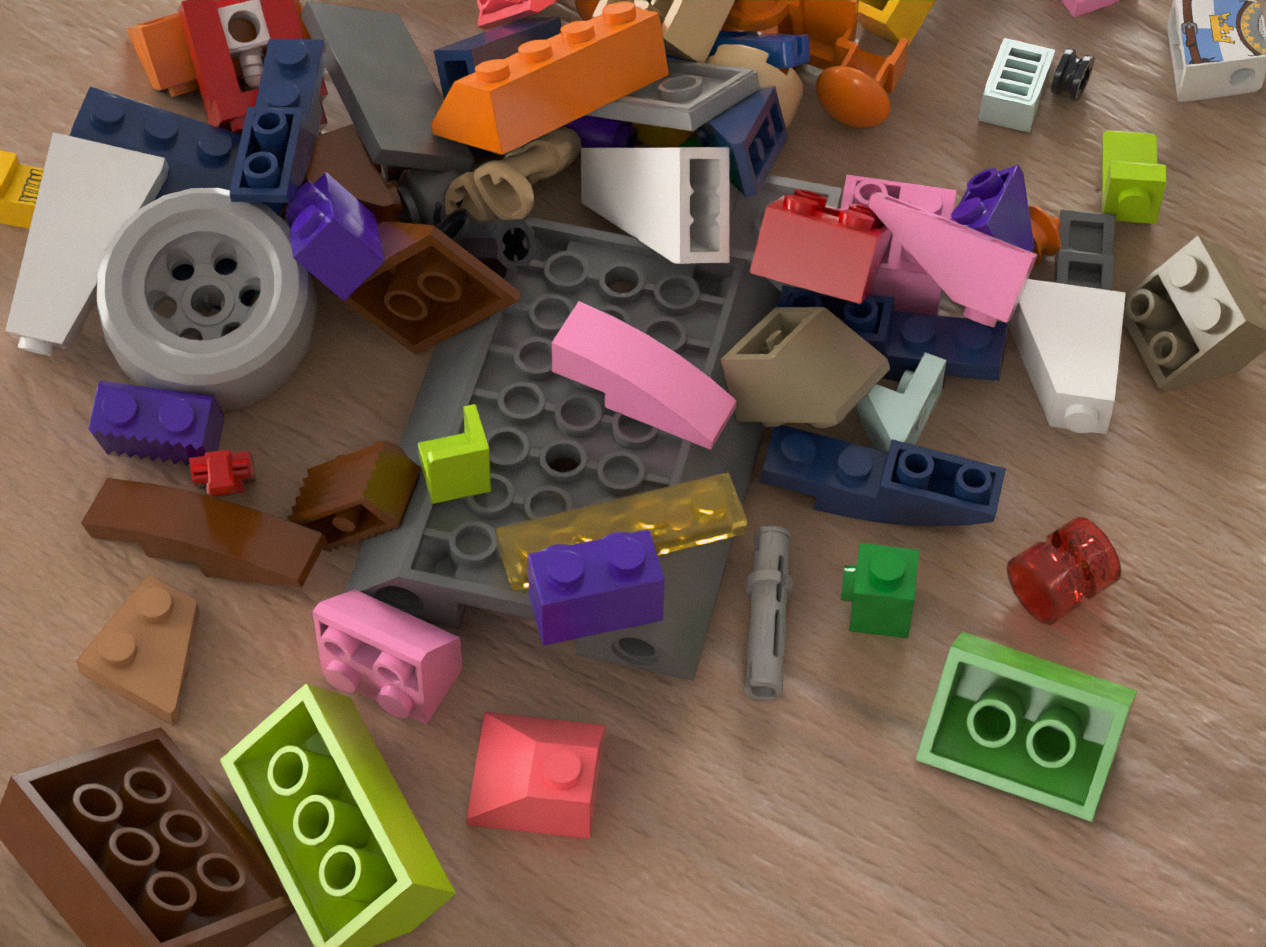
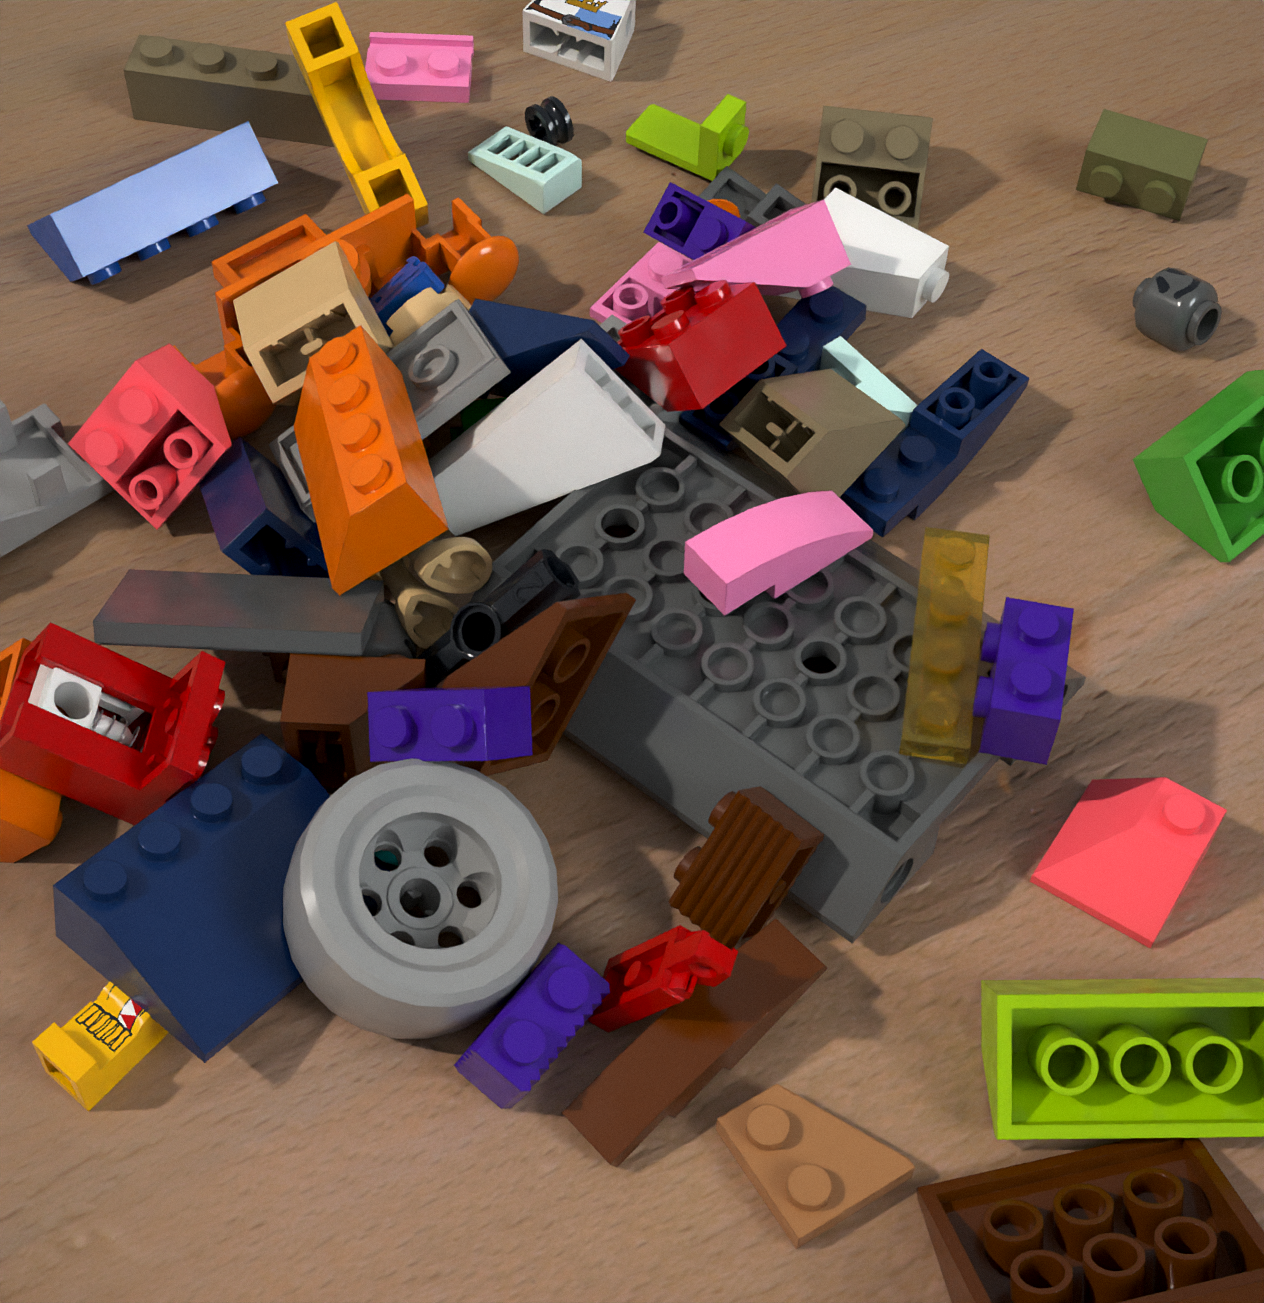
camera: 65 degrees left, 0 degrees up
(79, 208) = (248, 995): white slope -> none
(282, 125) = (277, 710): dark blue slope -> none
(385, 654) = (950, 922): bright pink slope -> none
(457, 463) = (796, 733): lime panel -> none
(769, 590) = (1088, 623): light grey pin -> none
(881, 590) = (1057, 496): green brick -> none
(1059, 572) = (1097, 364): clear red wheel -> none
(1187, 615) = (1176, 309): none -> dark grey head

